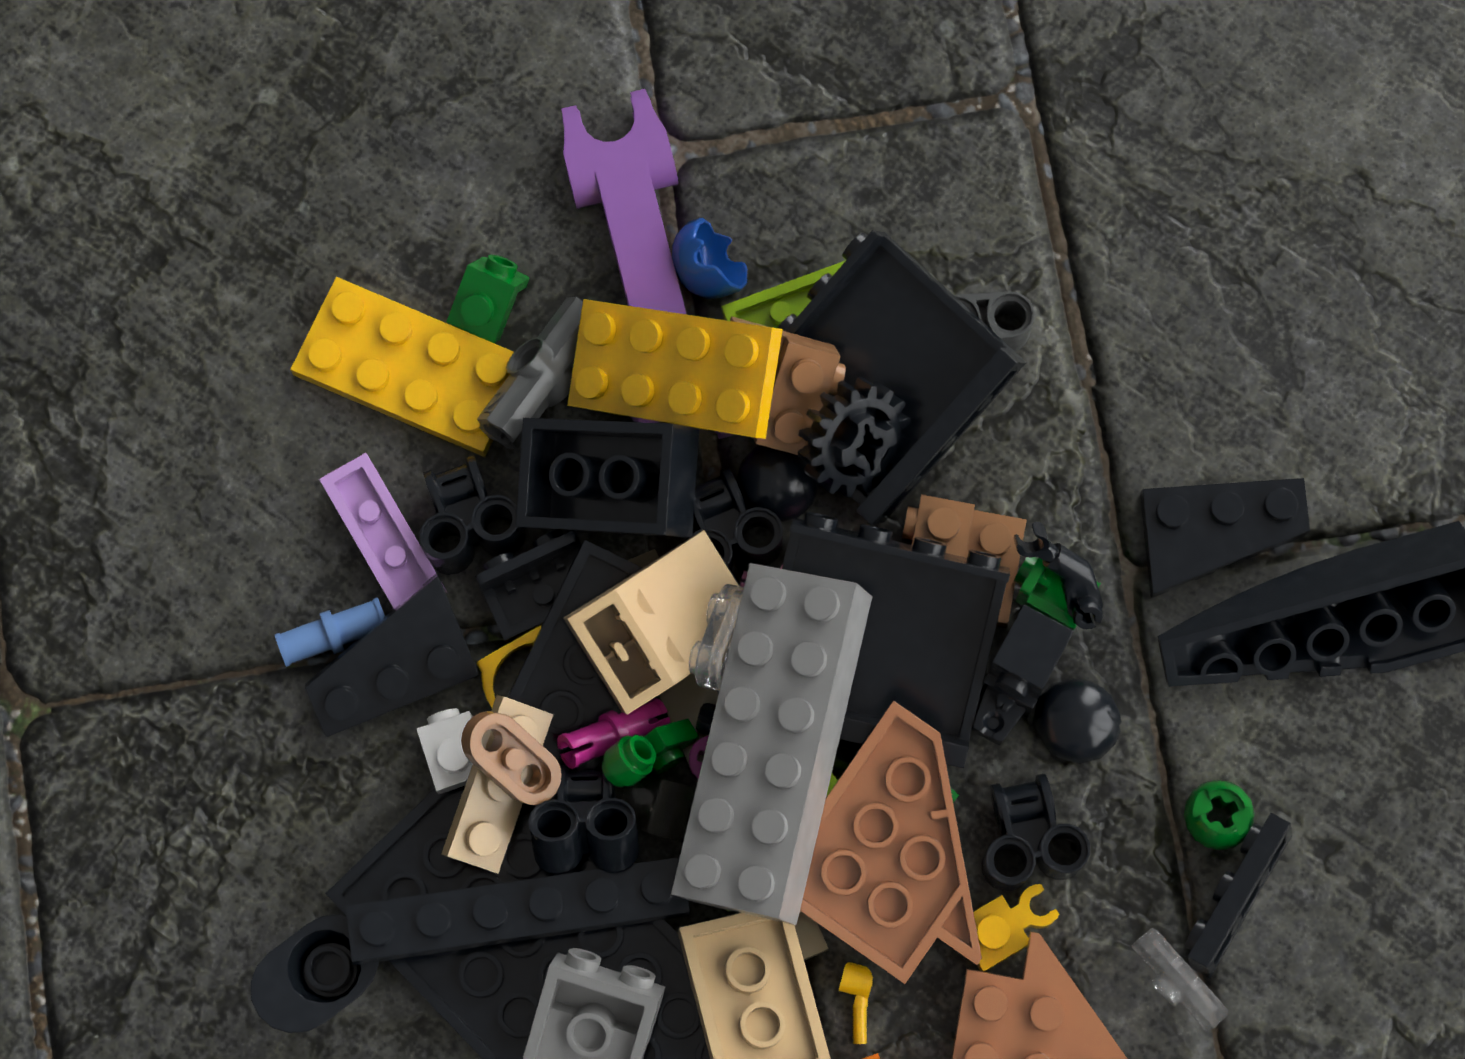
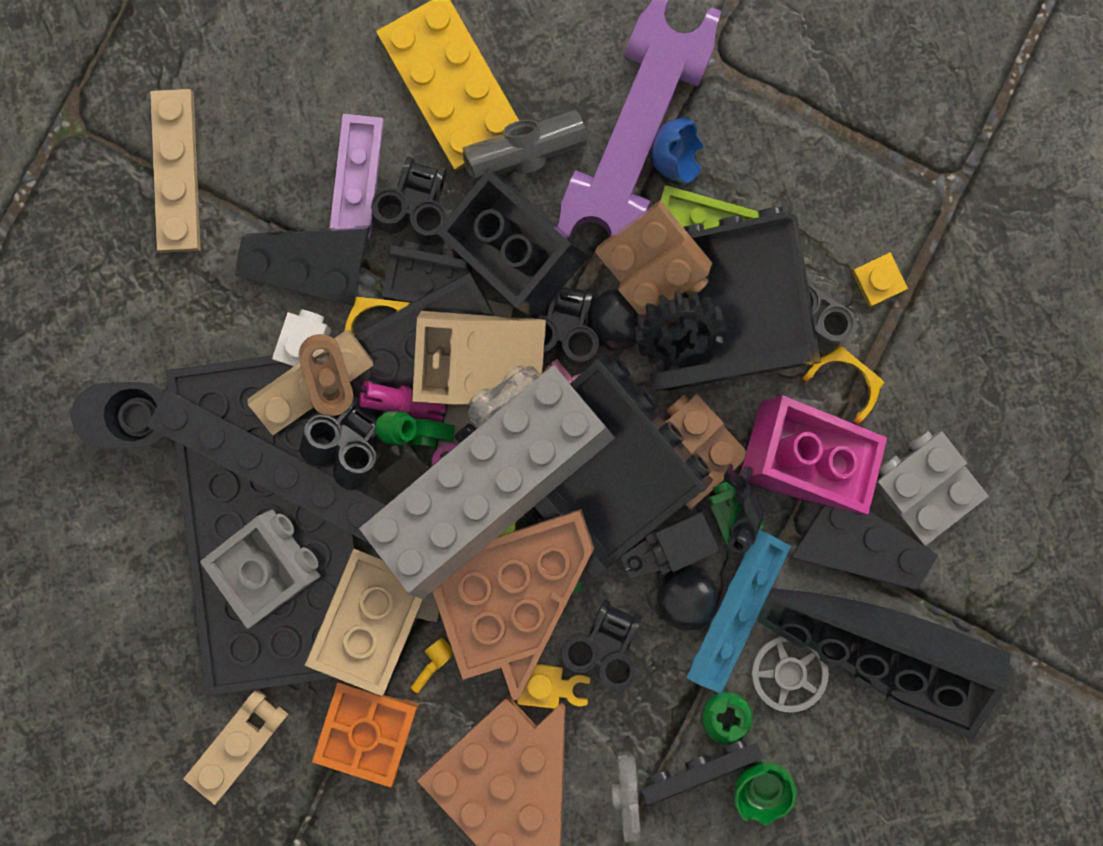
camera: 30 degrees right, 10 degrees up
(177, 674) = (175, 171): none -> tan plate
(329, 632) = (282, 212): medium blue pin -> none
(487, 297) = (528, 73): green bracket -> none
(675, 368) = (602, 207): yellow plate -> none
(1019, 243) = (879, 280): none -> yellow plate
(1090, 348) = (873, 382): none -> yellow cap
(1093, 468) = (814, 455): none -> dark pink slope
(1143, 693) = (738, 612): none -> dark azure plate
(1238, 415) = (929, 486): none -> light grey plate
(1247, 722) = (789, 675): none -> light grey wheel
(1321, 863) = (764, 792): none -> green hair

